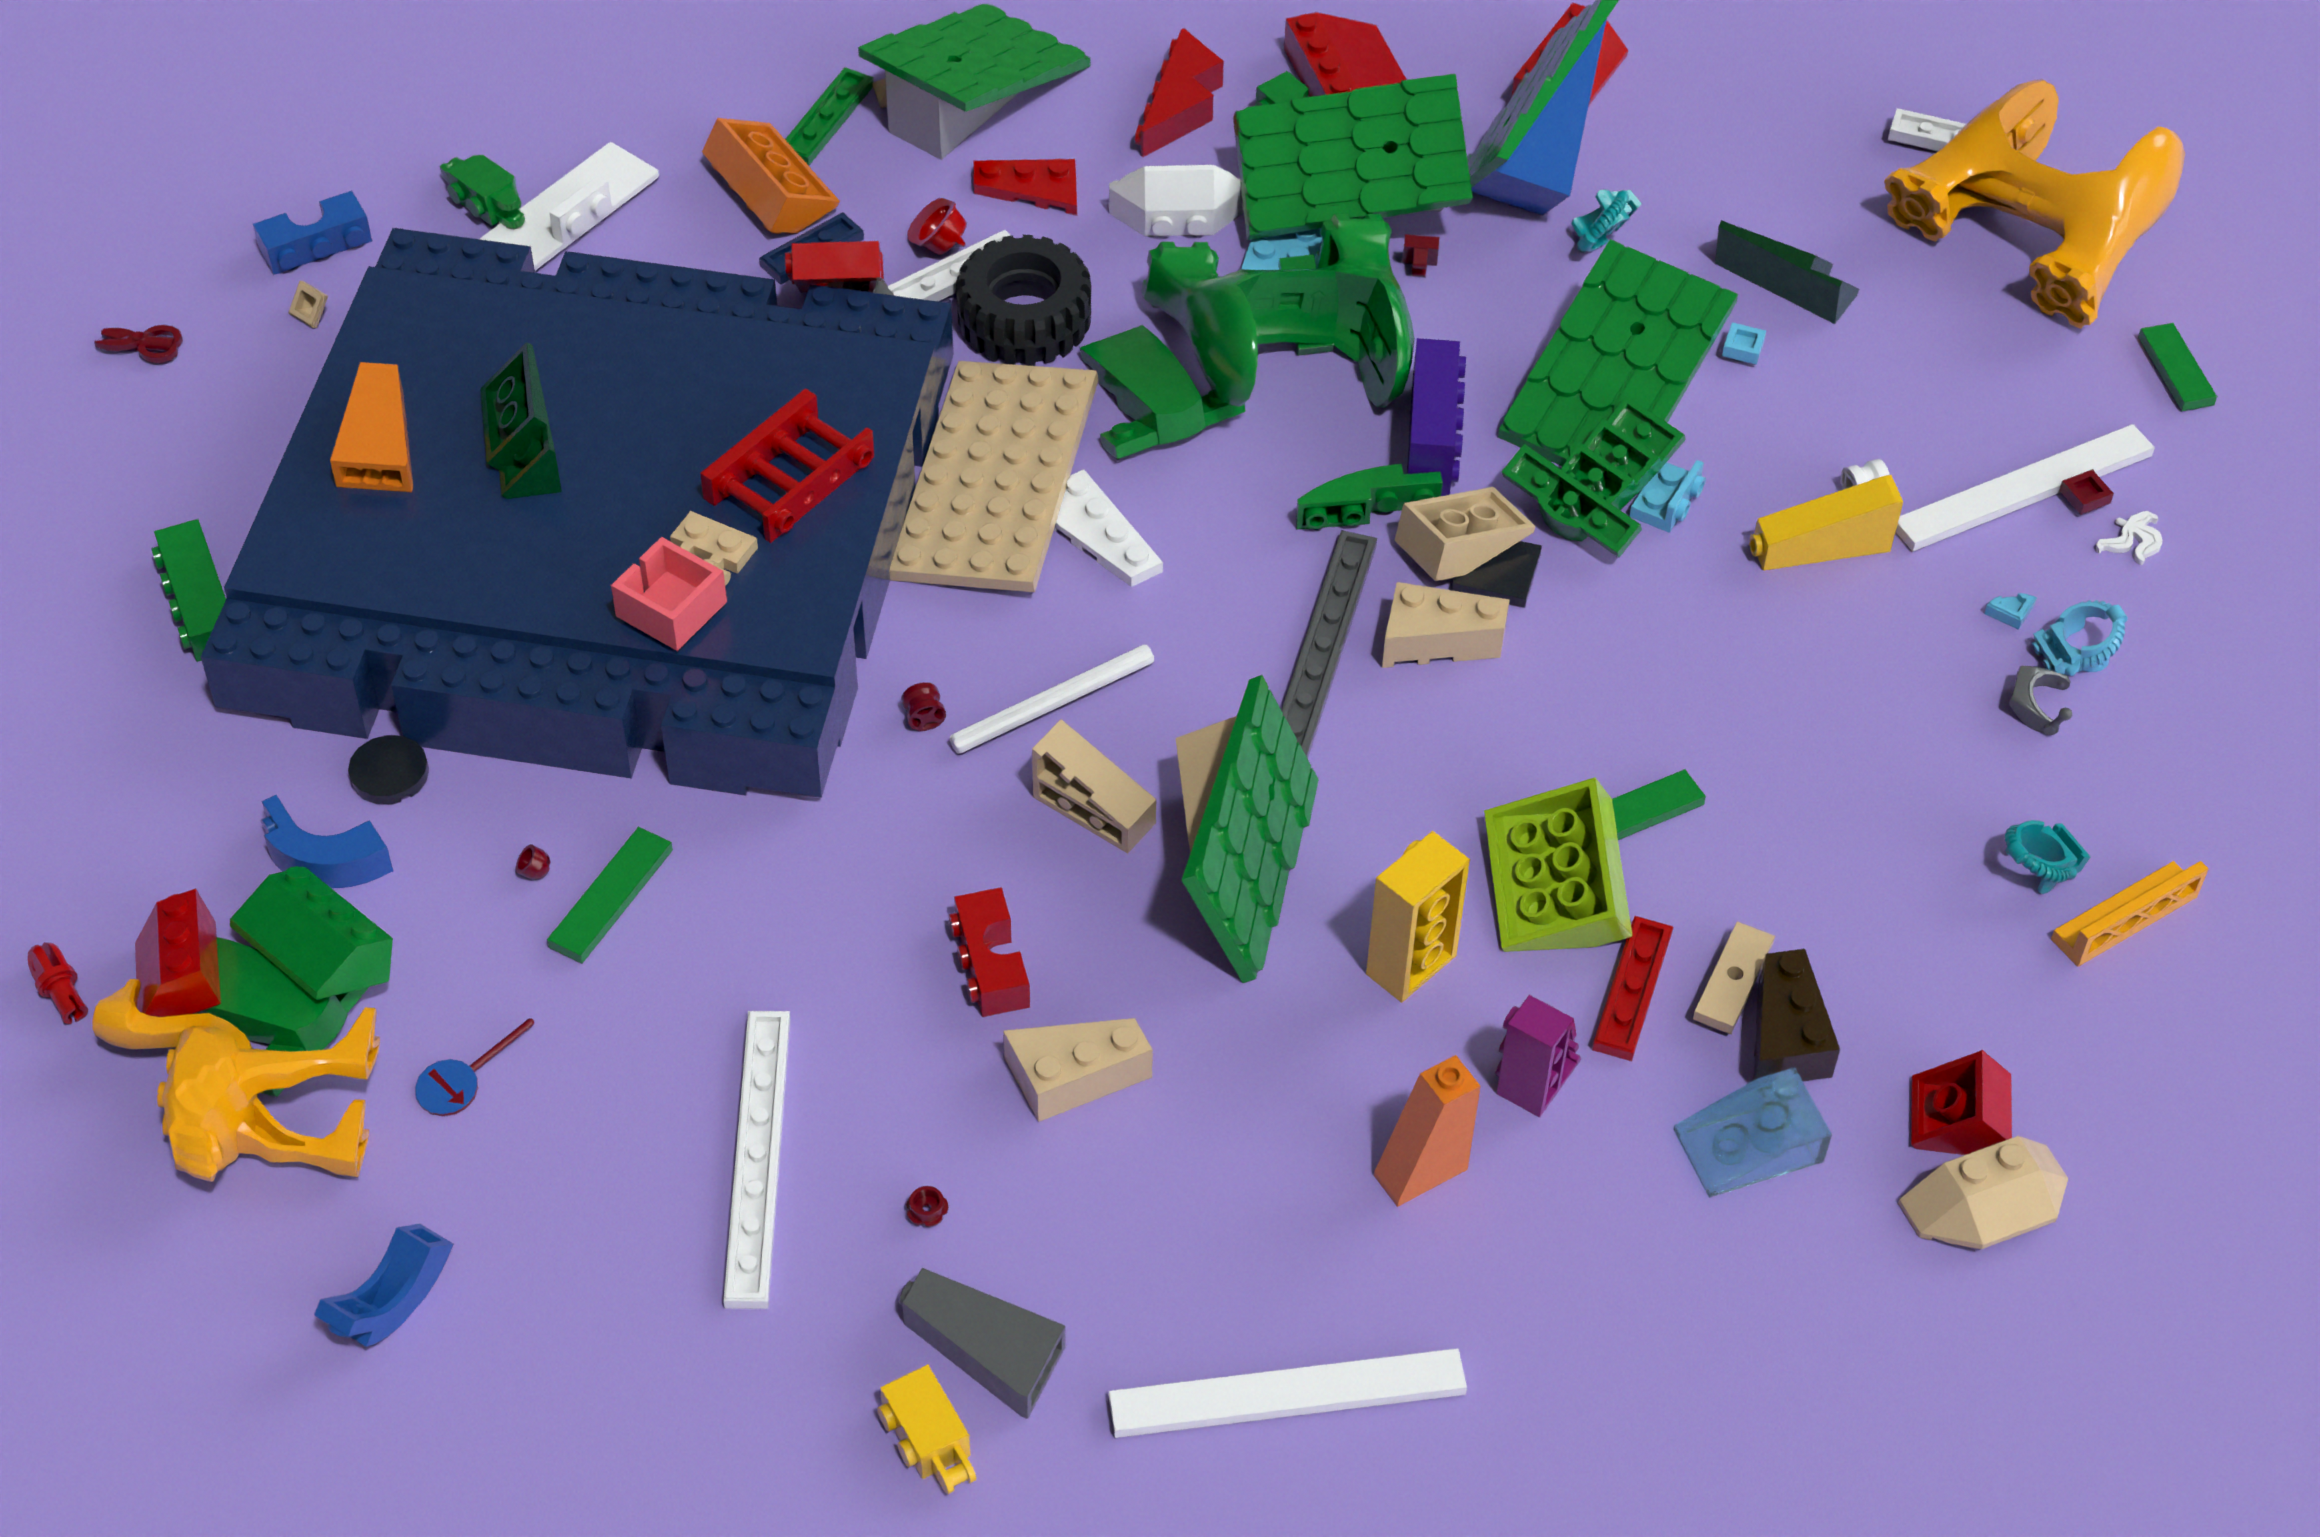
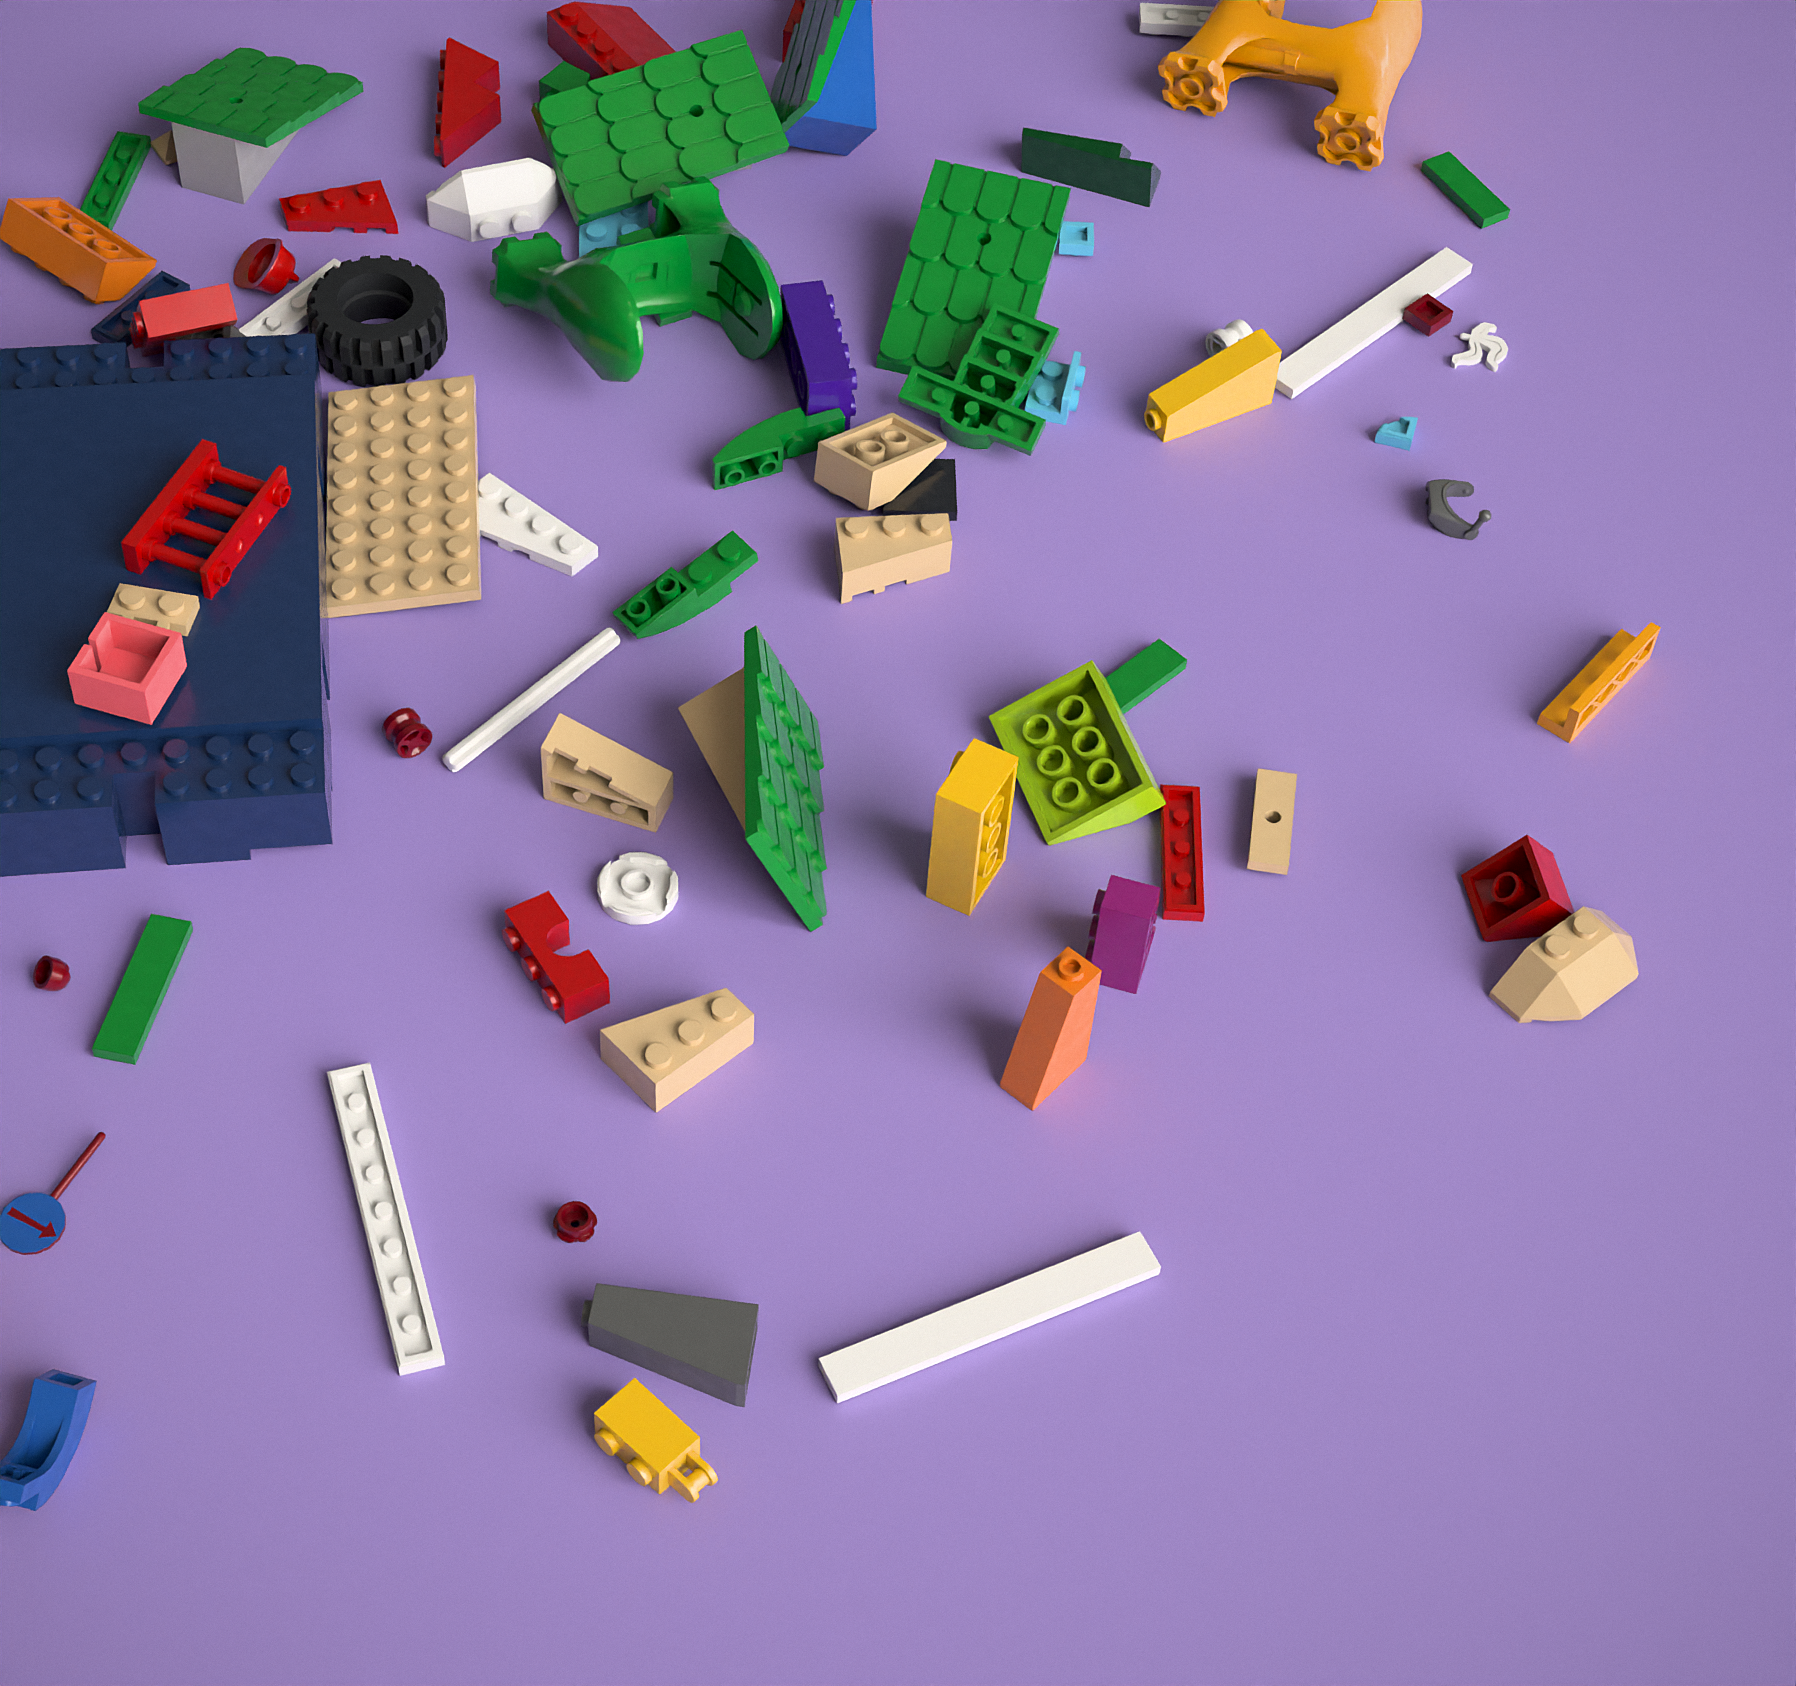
camera: 20 degrees left, 0 degrees up
(1086, 913) = (637, 900): none -> white tile
(1151, 390) = (532, 384): green slope -> none
(1224, 628) = (685, 594): none -> green slope
(1327, 635) = (780, 574): dark grey tile -> none
(1420, 252) = (747, 209): dark red tile -> none
(1614, 211) = (906, 151): teal piece -> none
(1755, 1134) = (1343, 961): clear light blue slope -> none
(1792, 1020) = (1341, 850): dark brown wedge -> none
(2057, 847) = (1509, 643): teal piece -> none
(2068, 660) = (1466, 467): medium azure piece -> none

